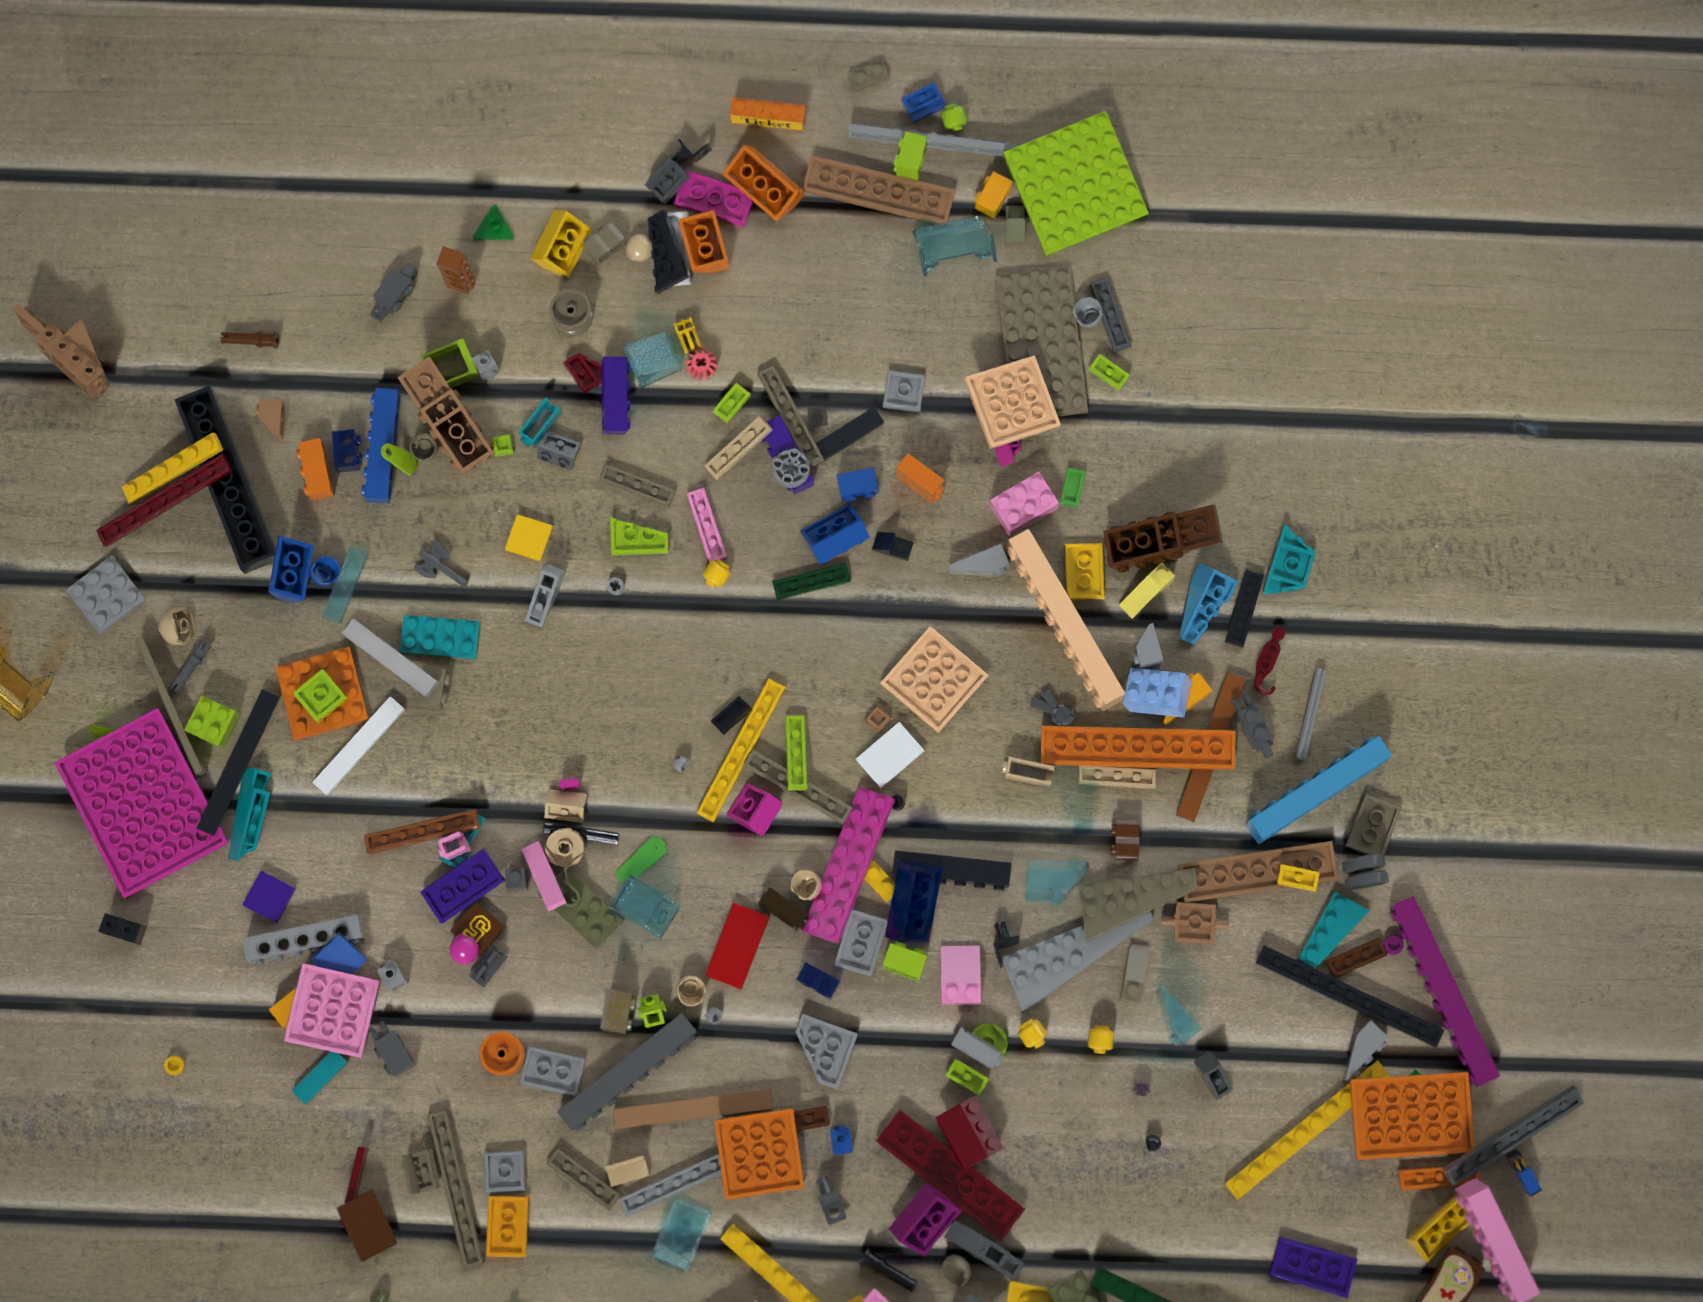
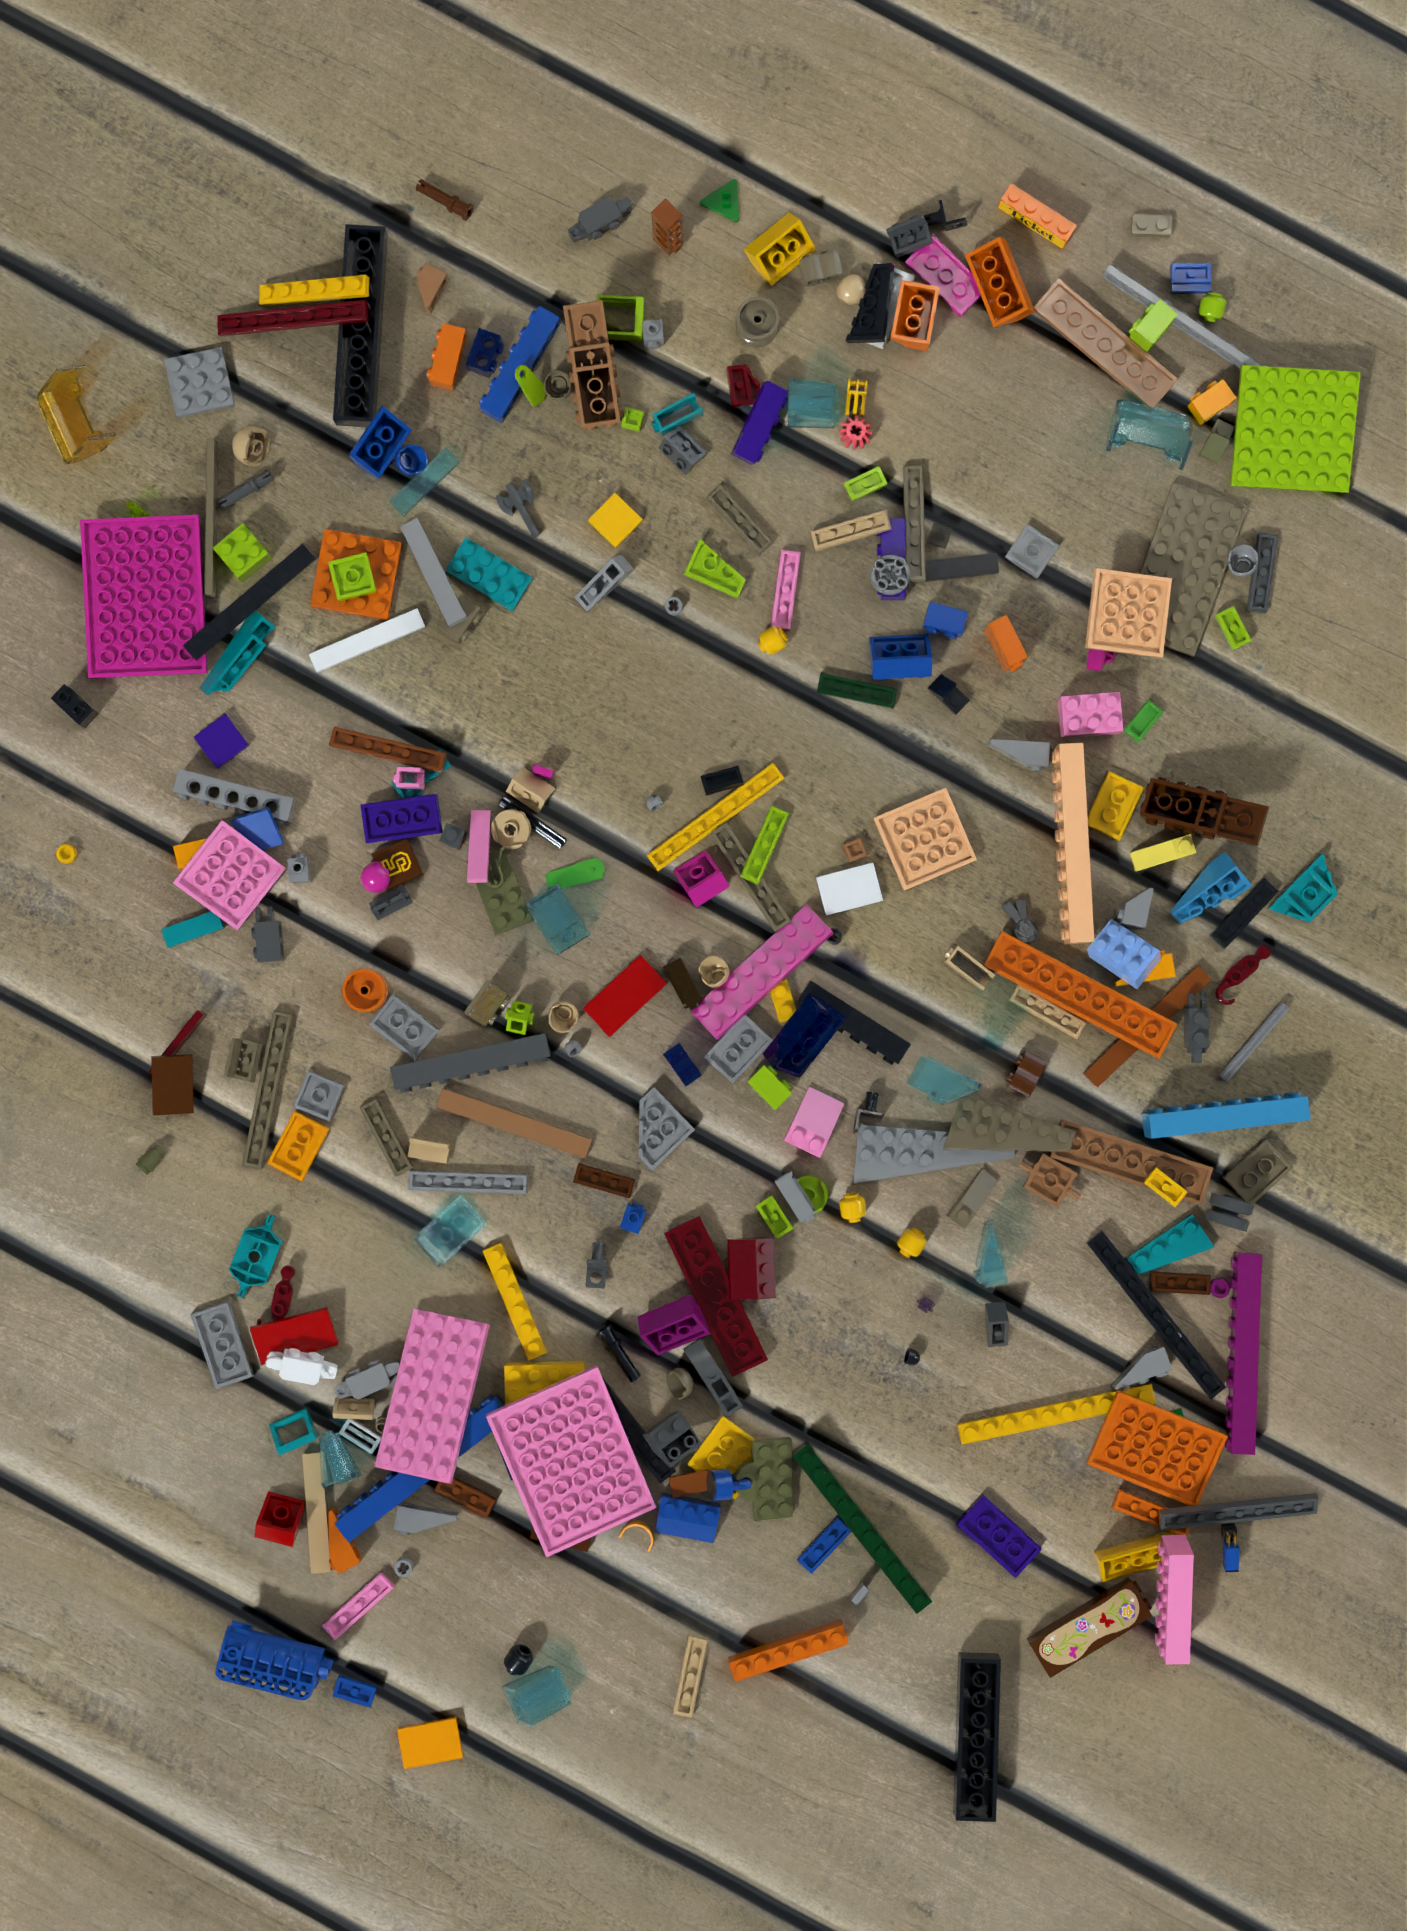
camera: 20 degrees right, 10 degrees up
(68, 351) = (269, 128): medium nougat wedge -> none
(759, 1153) = (553, 1193): orange plate -> none

